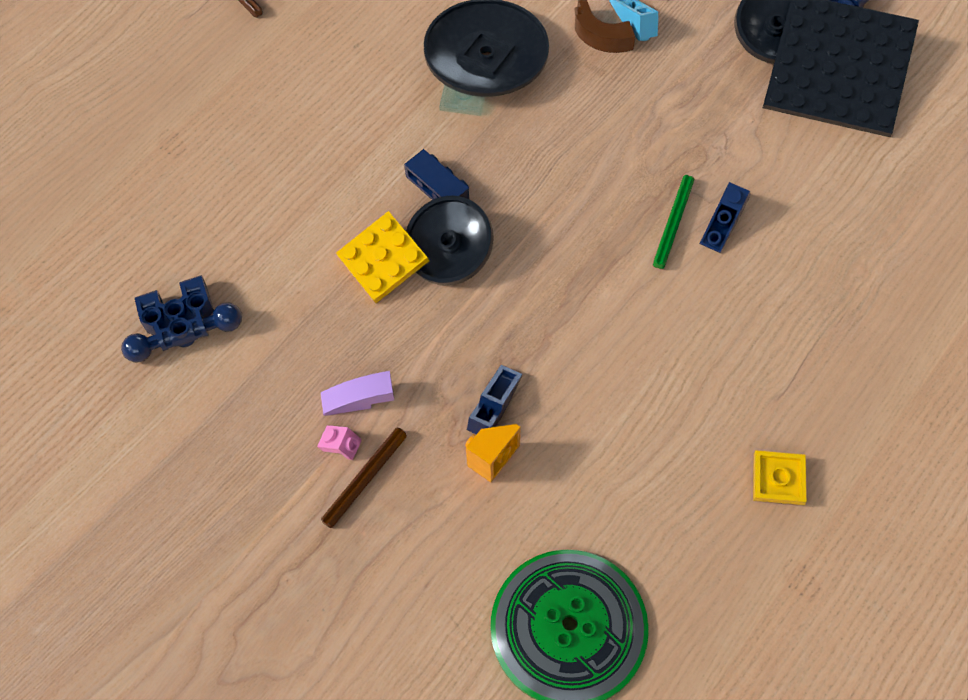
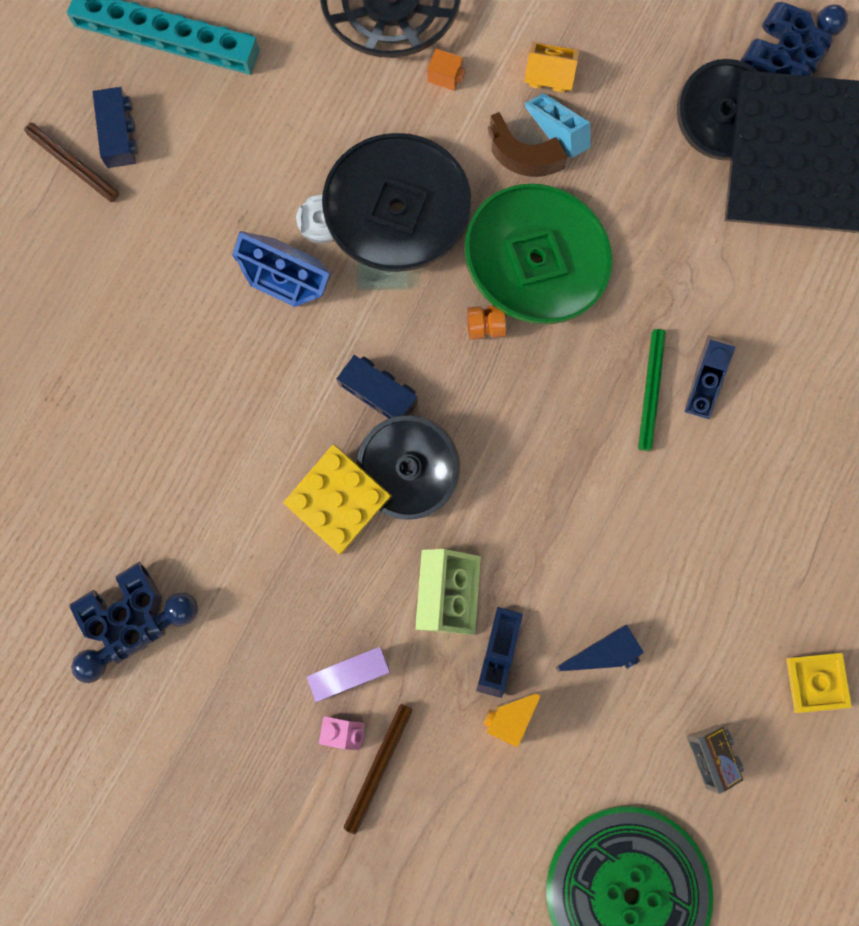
camera: 10 degrees left, 15 degrees up
(377, 81) = (280, 269): none -> blue wedge
(413, 55) = (312, 221): none -> white tile
(460, 344) = (448, 592): none -> yellowish green slope
(540, 145) = (485, 322): none -> orange wheel
(588, 418) = (612, 651): none -> dark blue slope
(612, 84) = (544, 223): none -> green dish
(671, 519) = (716, 759): none -> slope

